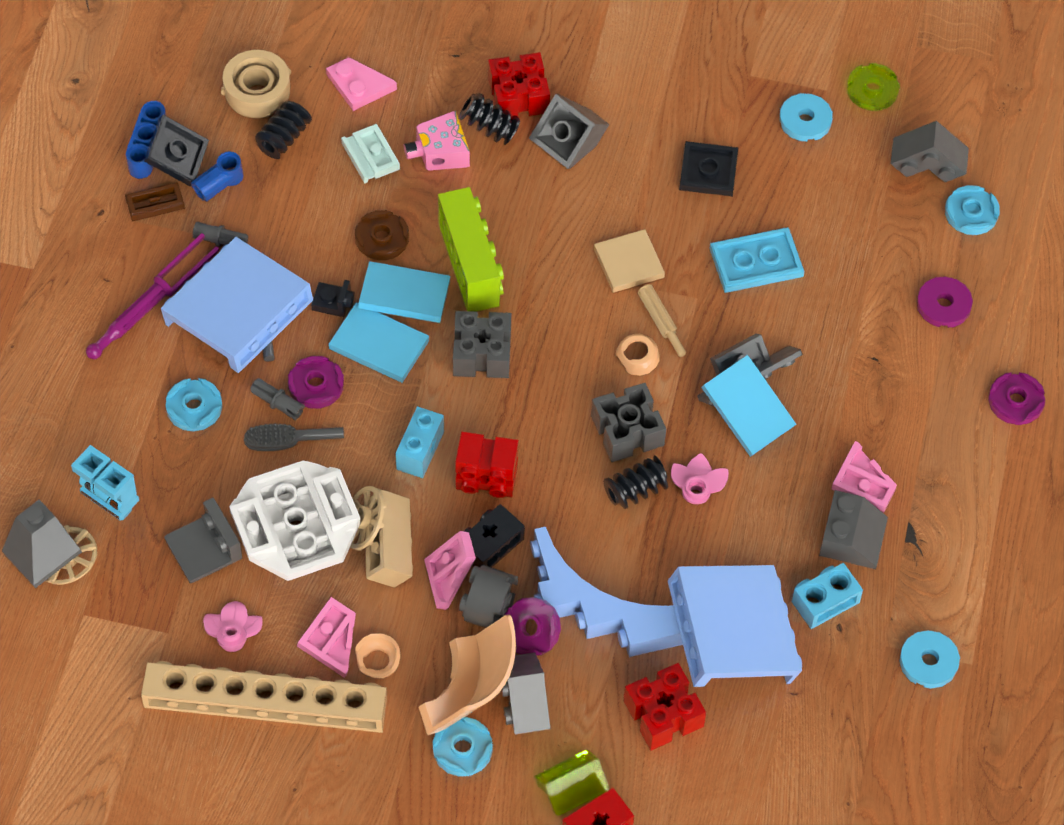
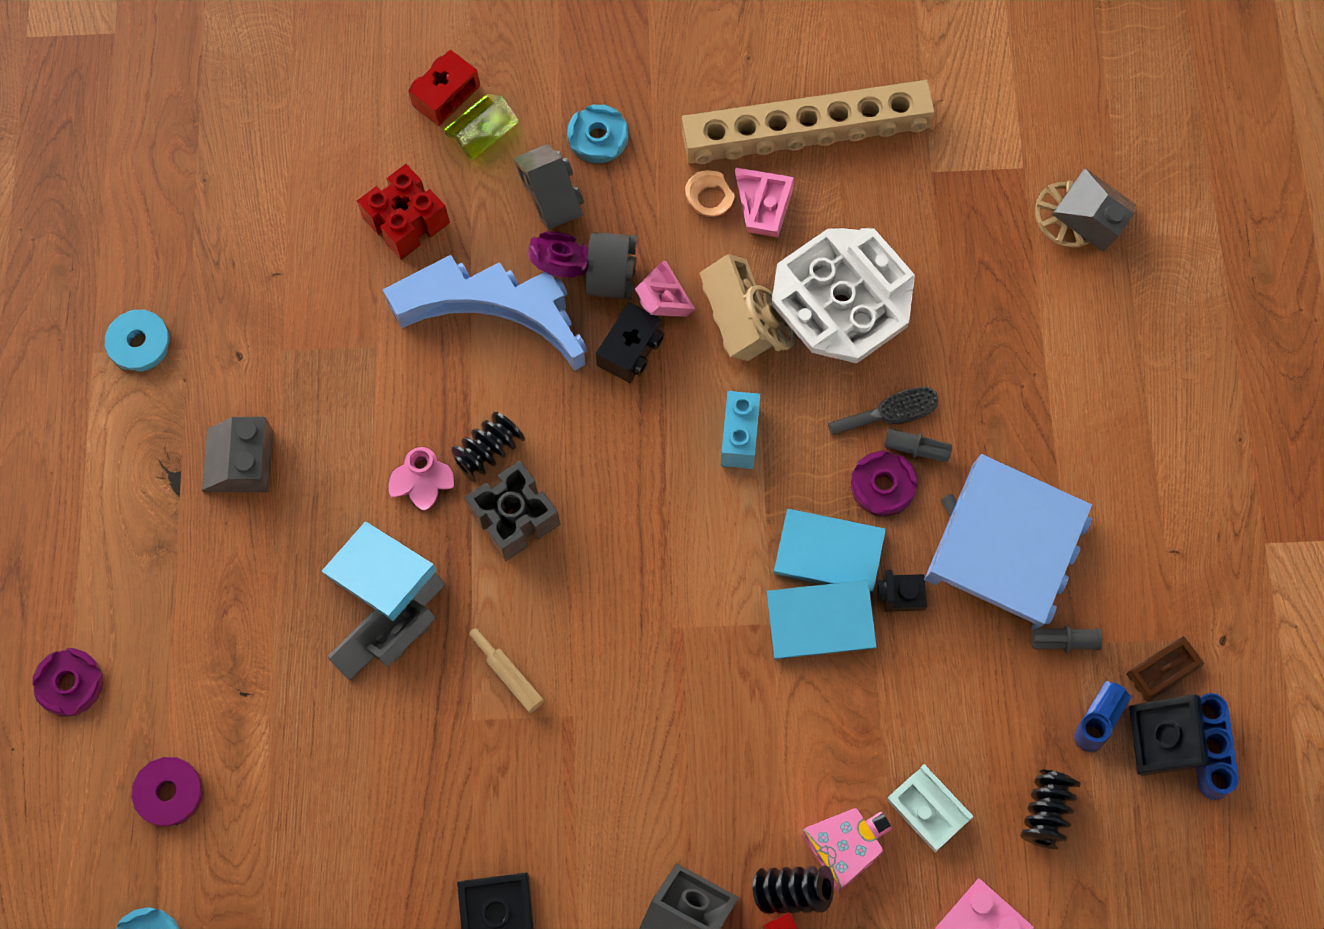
camera: 170 degrees right, 10 degrees up
(106, 483) = (1053, 277): medium azure hips -> none
(148, 299) = (1111, 531): magenta piece -> none
(197, 418) = (1004, 437): medium azure tile -> none
(205, 544) = (933, 259): dark grey bracket -> none
(232, 626) = (868, 192): bright pink plate -> none
(254, 69) = (1136, 849): tan piece -> none
(381, 248) = (872, 718): reddish brown tile -> none
(470, 250) = (760, 683): lime brick -> none
(478, 674) = (595, 164): light nougat panel -> none
(482, 344) = (698, 587): dark grey brick -> none
(486, 465) = (656, 410): red brick -> none
(629, 261) = (565, 744): tan tile -> none
(639, 366) = (525, 636): light nougat piece -> none
(733, 622) = (343, 299): light blue panel -> none
(756, 260) = (409, 791): medium azure tile -> none
(831, 600) = (248, 369): medium azure brick -> none
(865, 479) = (233, 523): bright pink wing -> none

